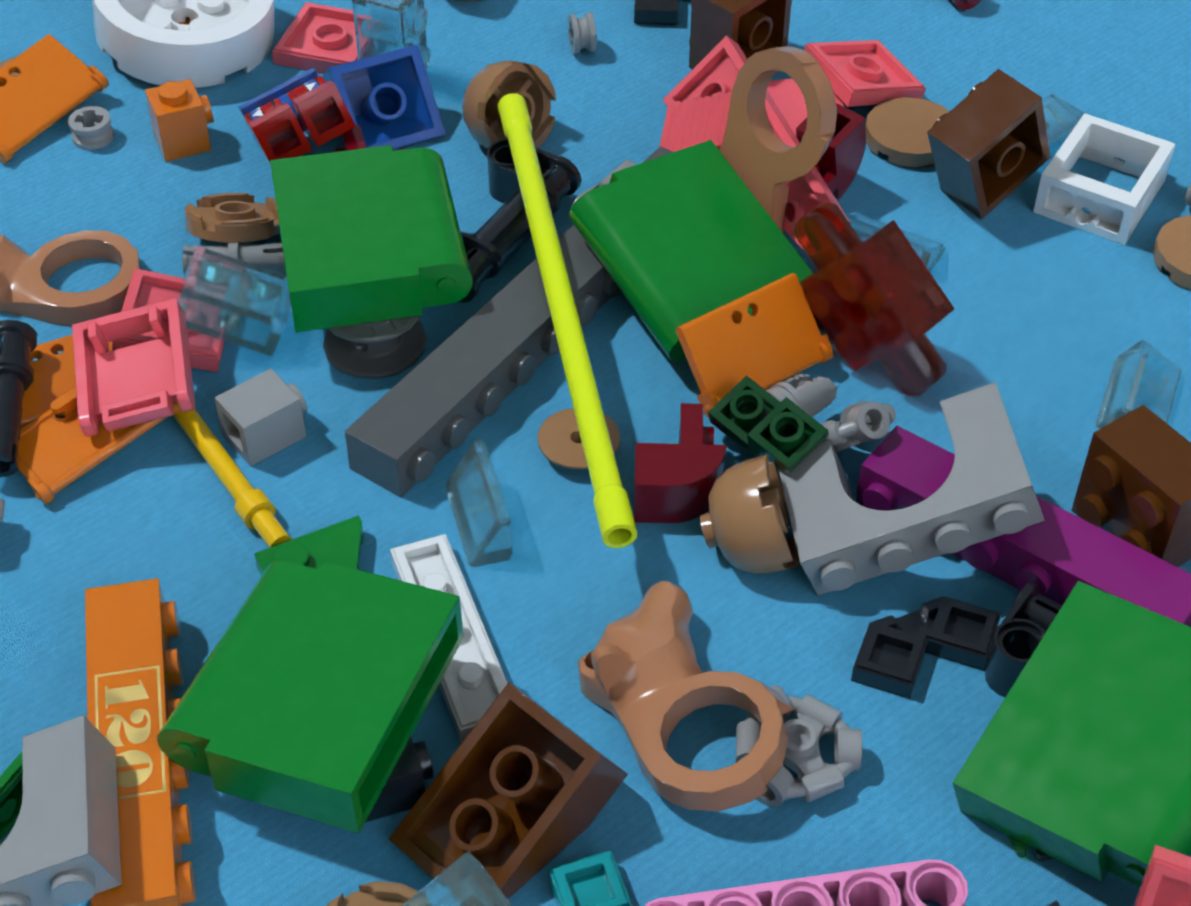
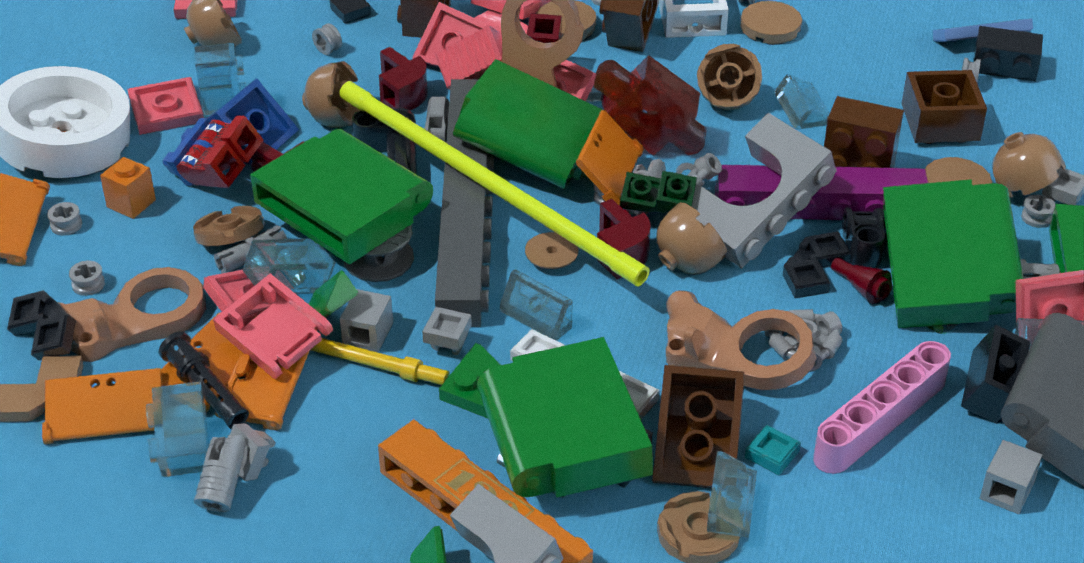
camera: 35 degrees left, 5 degrees down
(40, 209) = (86, 278): none -> light grey bush
(222, 369) = (333, 294): none -> green slope
(333, 479) = (447, 329): none -> light grey tile
(616, 127) = (402, 80): none -> dark red brick
(966, 706) = (870, 282): none -> dark red cone
(1040, 306) = (729, 76): none -> medium nougat cylinder

